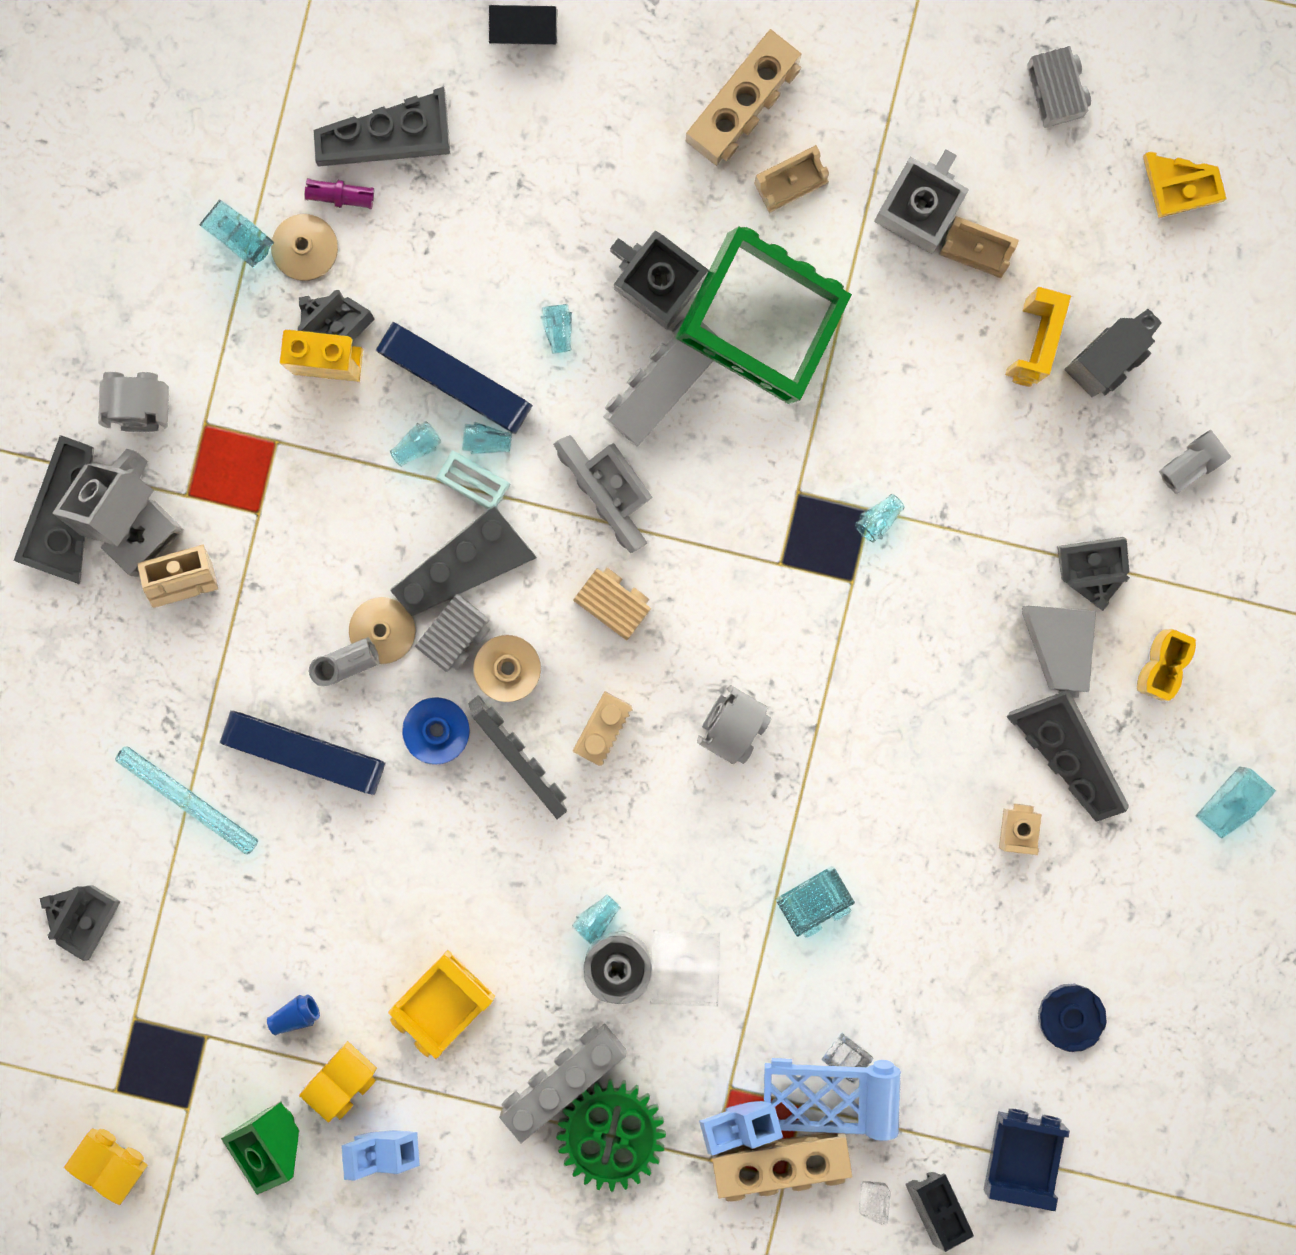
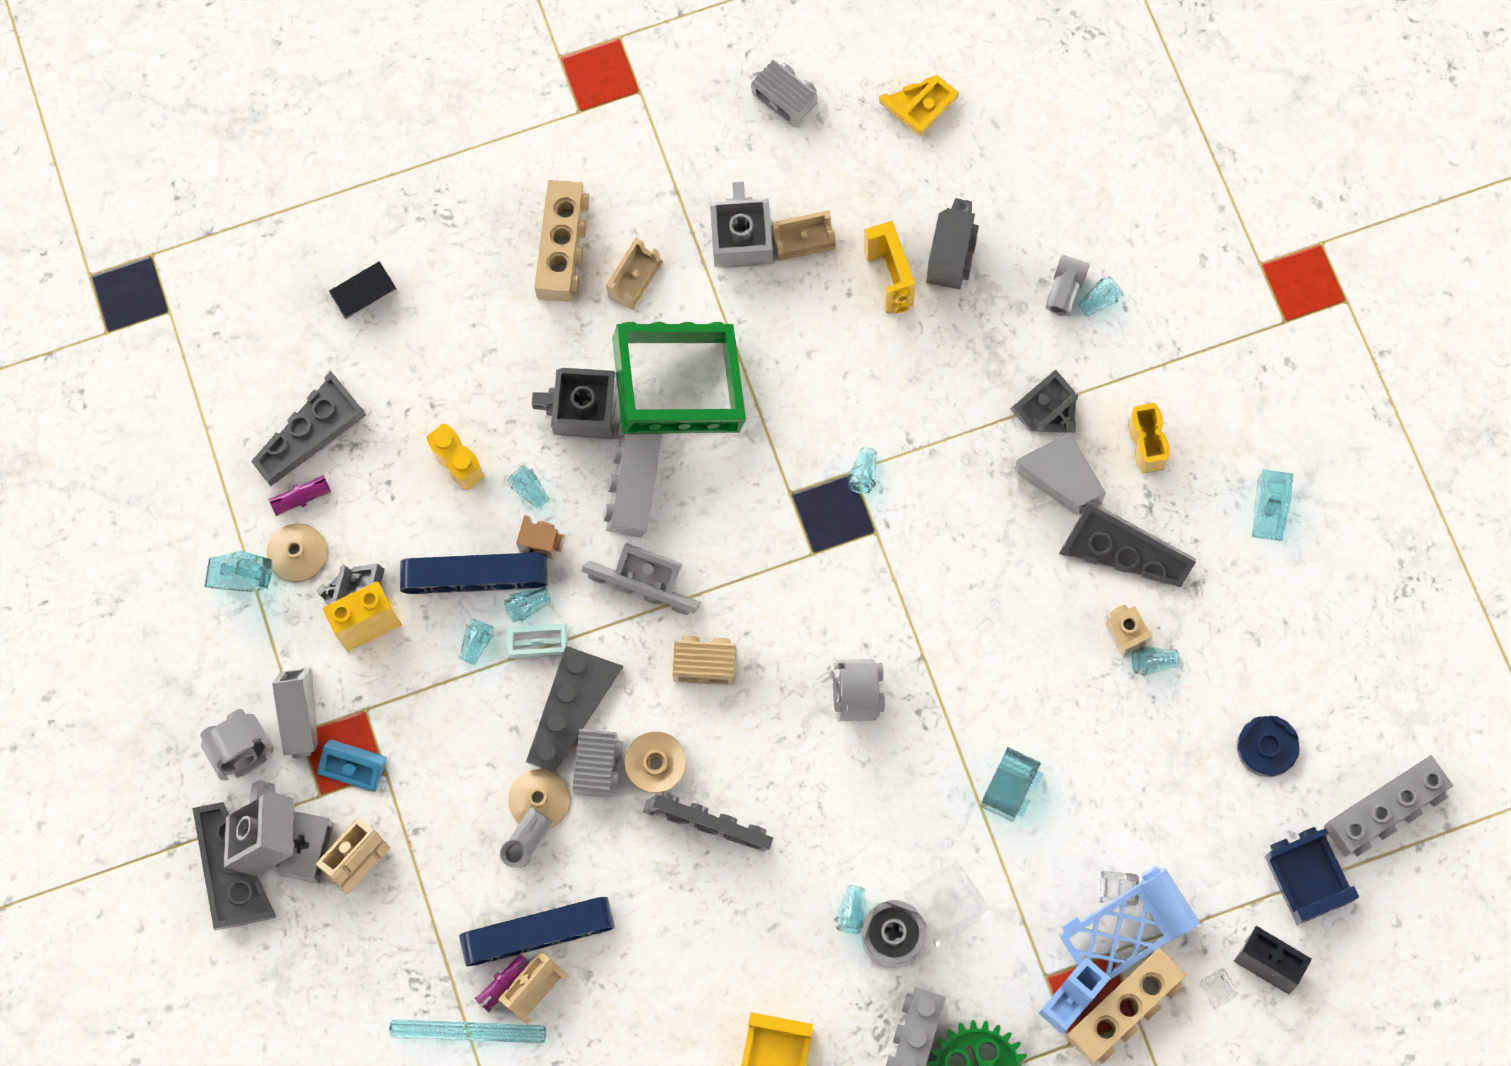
camera: 30 degrees left, 15 degrees down
(209, 403) = (296, 712): none -> light grey slope
(232, 486) = (351, 765): none -> dark azure slope
(244, 779) = (501, 983): none -> magenta pin
(265, 799) = (532, 986): none -> tan hinge
(418, 733) = (621, 833): blue dish -> none
(507, 244) = (453, 455): none -> yellow brick
(536, 385) = (539, 538): none -> medium nougat brick
(602, 728) = (759, 759): tan brick -> none
(1022, 872) = (1152, 660): none -> clear light blue cone
(1141, 1145) = (1389, 805): none -> light grey brick
(1218, 495) = (1100, 296): none -> clear light blue cone

